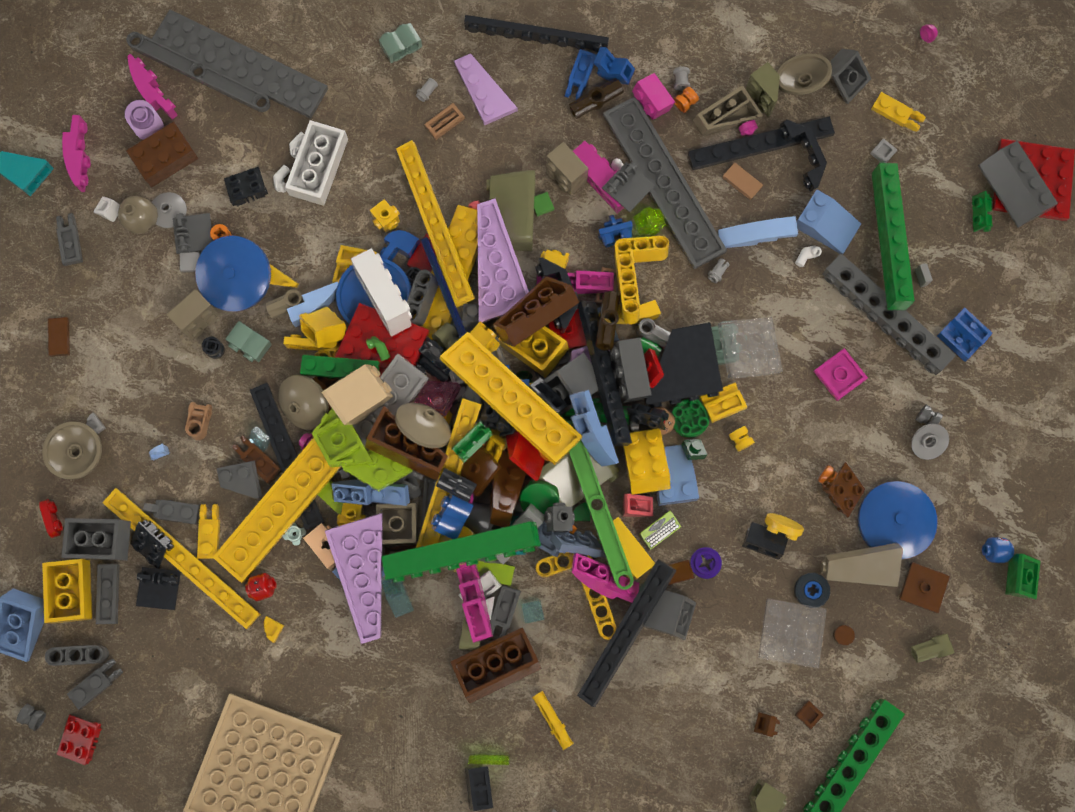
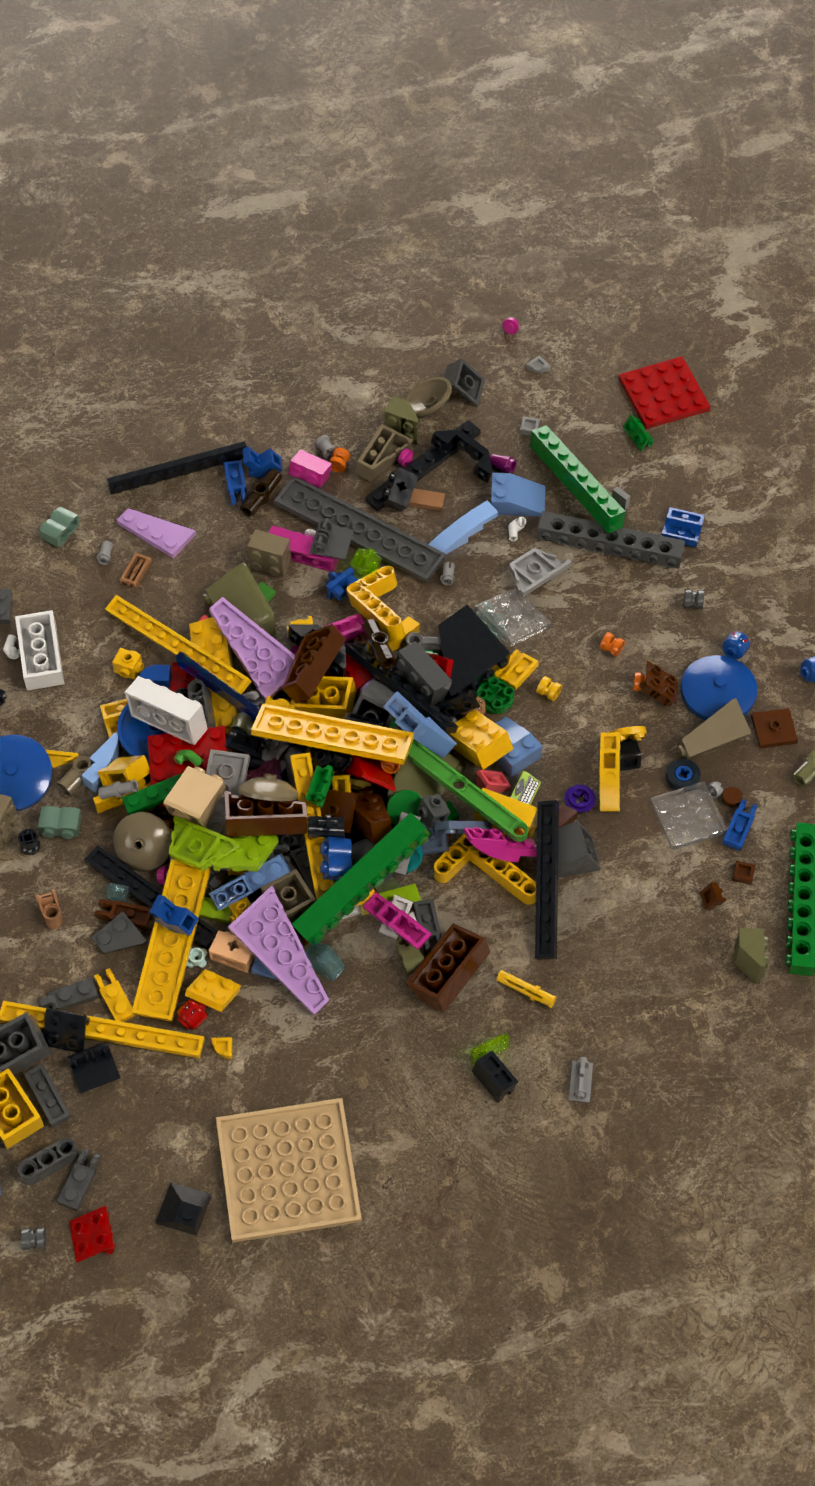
camera: 30 degrees left, 20 degrees down
(158, 452) = (26, 953): light blue tile -> none
(162, 758) = (183, 1209): none -> black slope
(278, 178) = (13, 685): white arm -> none
(285, 496) = (173, 917): none -> blue brick
(288, 575) = (213, 990): none -> yellow plate
(305, 344) = (118, 789): none -> light grey pin
(532, 612) = (453, 912): clear light blue tile -> none
(694, 449) = (514, 715): plate -> none
(731, 159) = (405, 483): none -> black brick
(745, 556) = (610, 772): none -> yellow slope
(799, 309) = (535, 569): none -> light grey wing
(827, 428) = (612, 644): none -> orange wheel
(832, 620) = (715, 789): none -> light grey hinge
(832, 669) = (739, 827): none -> blue hinge
(836, 181) = (504, 463): none -> magenta cone
(840, 374) = (600, 602): dark pink plate -> none
(897, 112) = (523, 393): yellow hinge -> none
(930, 89) = (538, 365): none -> light grey tile
(934, 445) = (712, 612): light grey dish -> none
(939, 486) = (736, 645): none -> blue head
(1017, 184) = (653, 397): dark grey slope -> none

